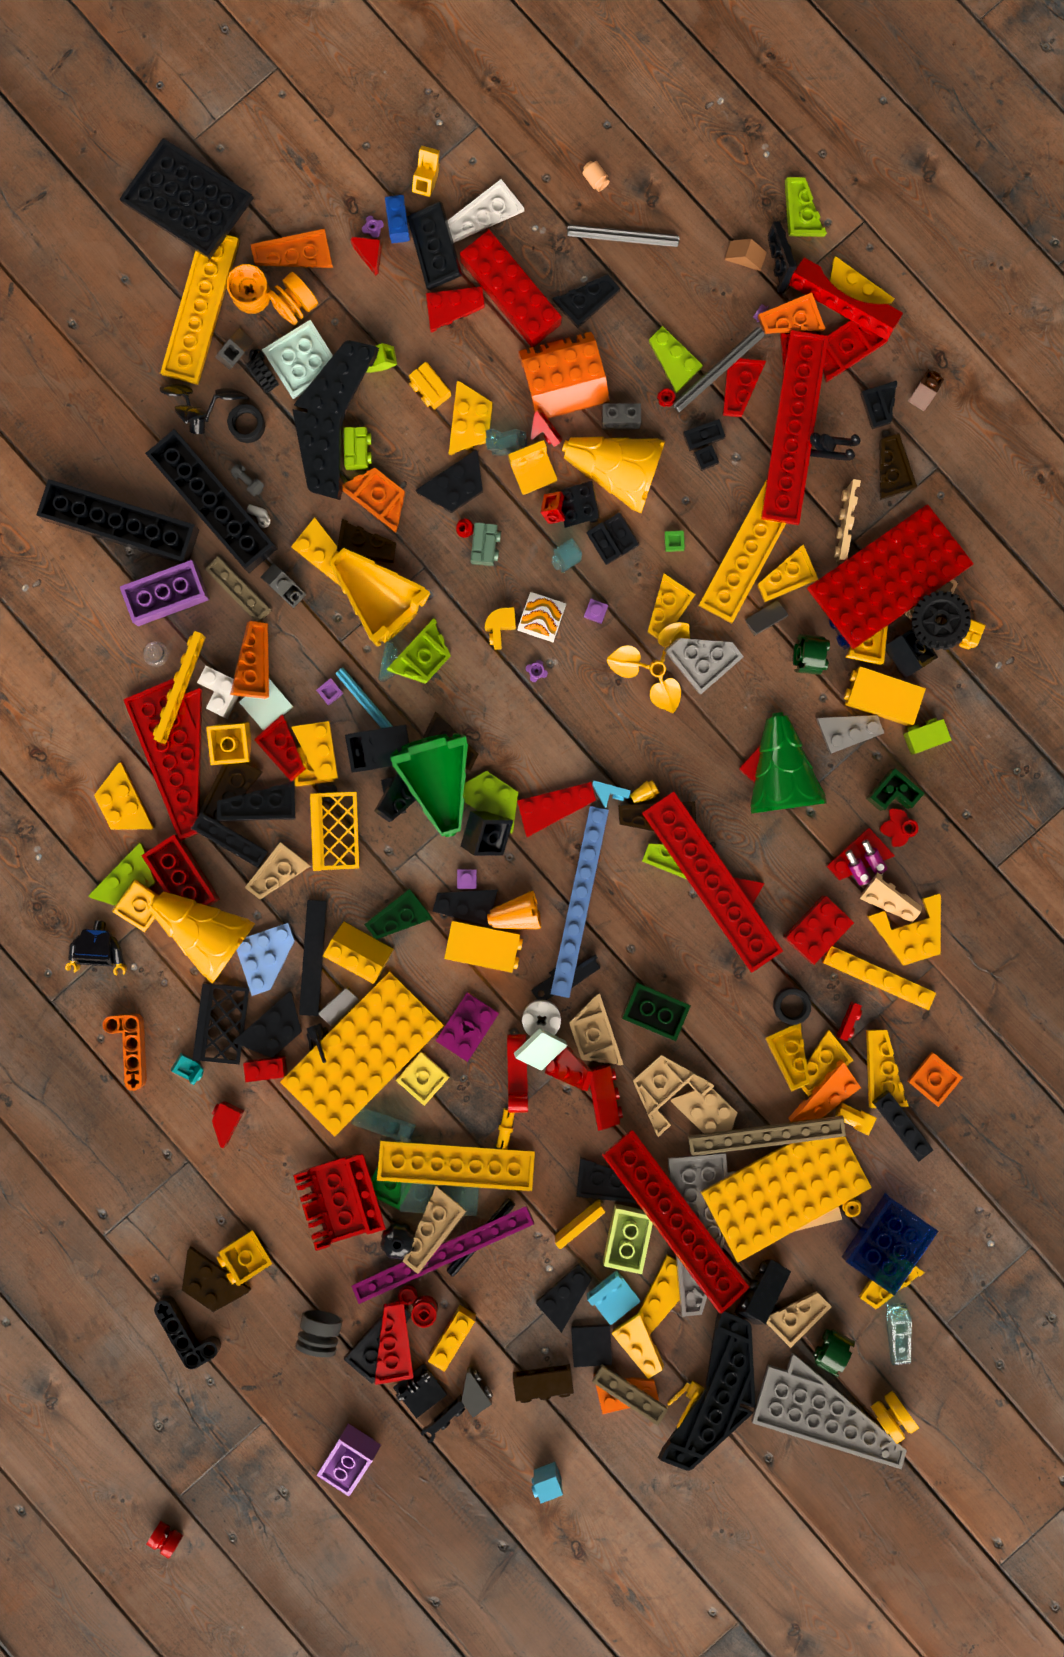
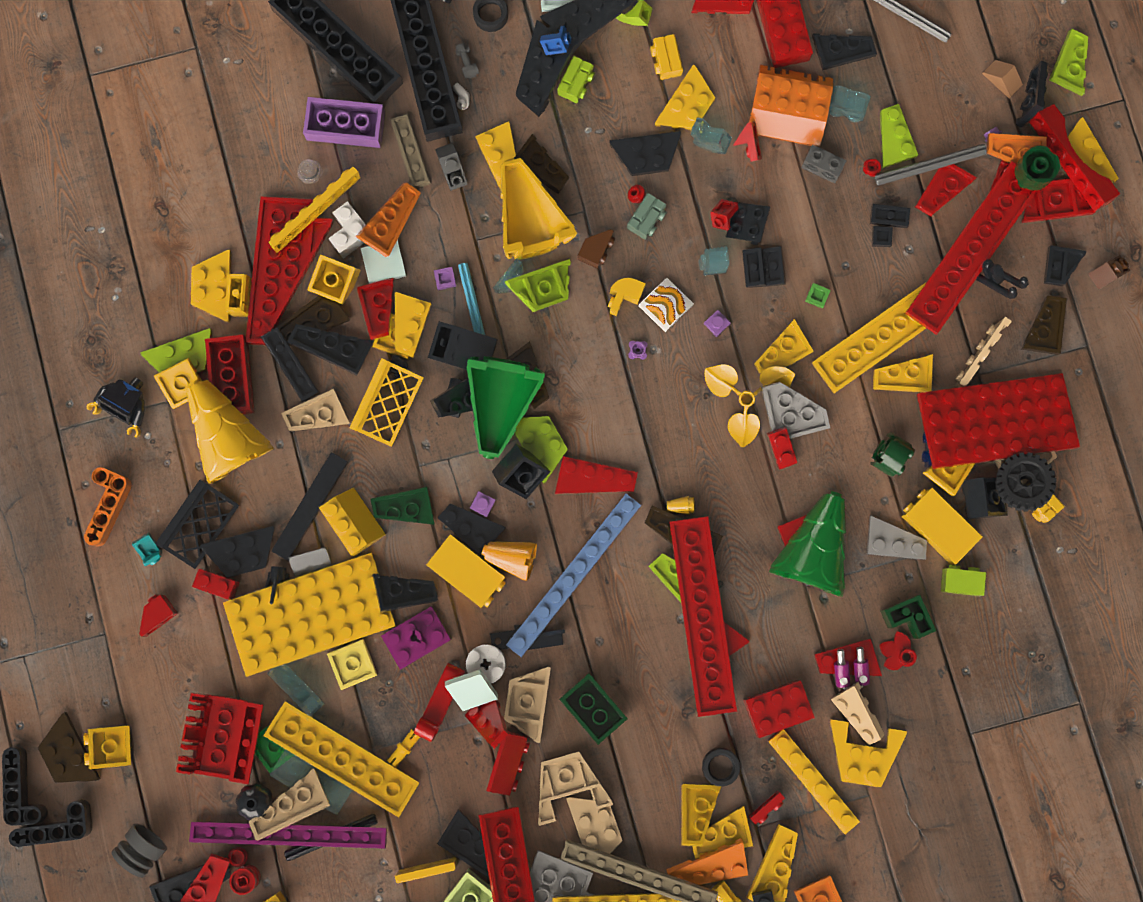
camera: 25 degrees right, 5 degrees down
(150, 800) = (238, 295): none -> yellow brick
(231, 1355) = (50, 829): none -> black beam
(264, 956) = (267, 483): light blue plate -> none
(323, 423) = (557, 42): none -> blue bracket
(377, 496) = (573, 130): orange wing -> none
(436, 993) = (401, 593): none -> black wing
(452, 597) = (595, 247): none -> reddish brown slope
(532, 467) = (722, 170): yellow bracket -> none
(604, 790) = (646, 485): medium azure slope -> none
(617, 348) = (848, 103): none -> clear light blue brick
(617, 464) = (799, 204): yellow cone -> none
(709, 696) = (782, 448): none -> red plate
(766, 618) = (867, 404): dark grey slope -> none
(817, 326) = (1037, 168): none -> dark green brick

